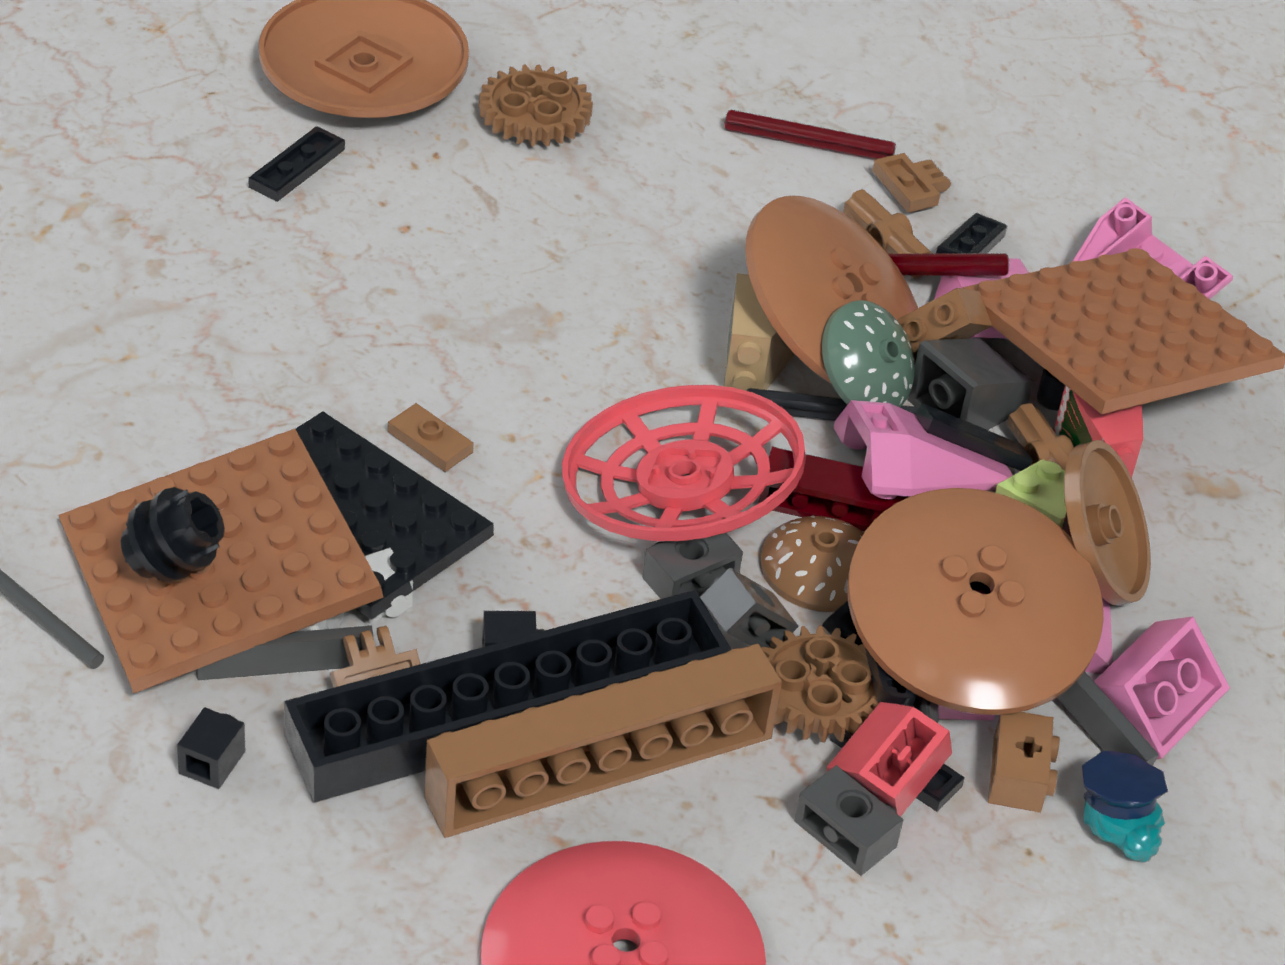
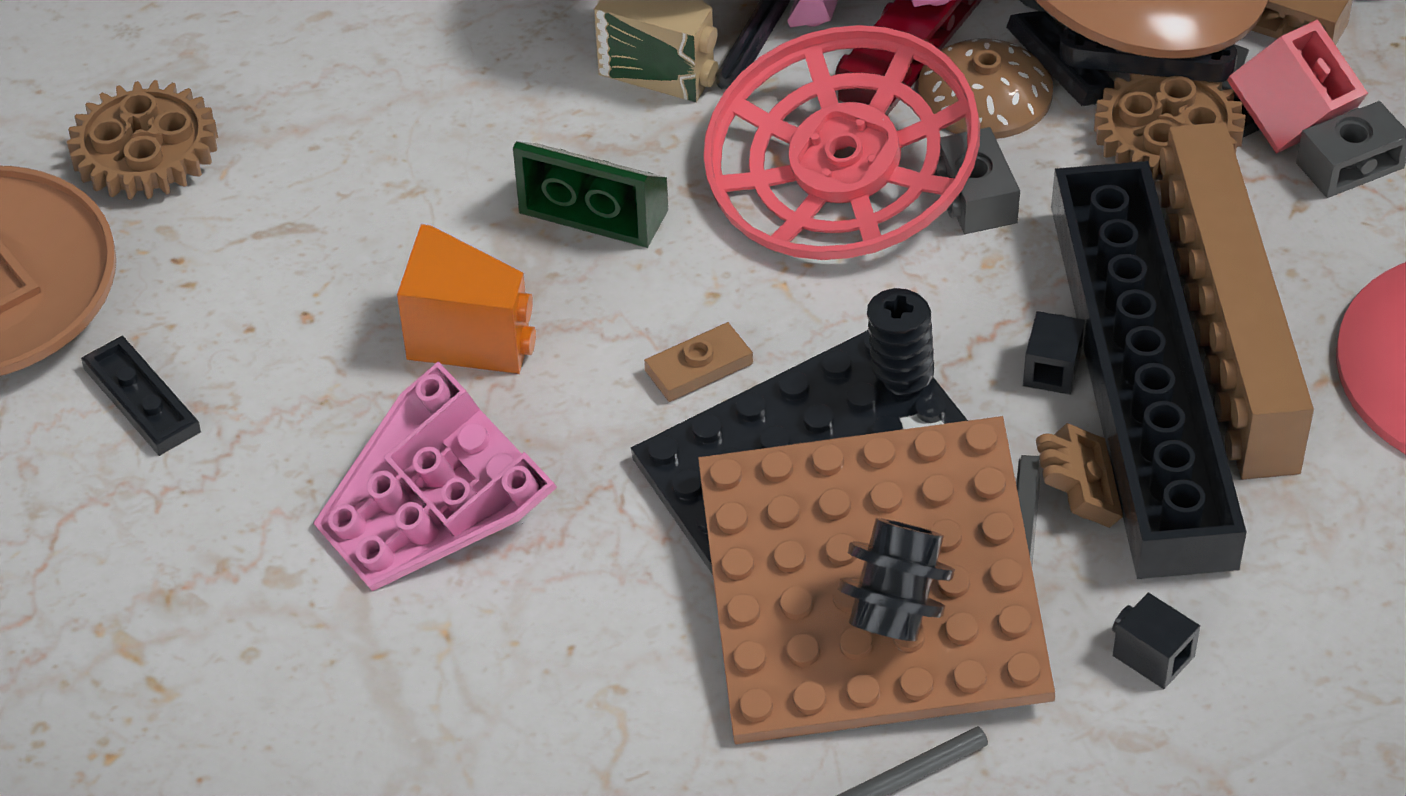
camera: 65 degrees left, 5 degrees up
(255, 313) = (428, 484): none -> bright pink wedge
(418, 281) = (463, 306): none -> orange slope
(433, 505) = (901, 340): none -> black piece
(578, 333) = (589, 193): none -> dark green slope
(747, 609) = (1081, 141): dark grey brick -> none

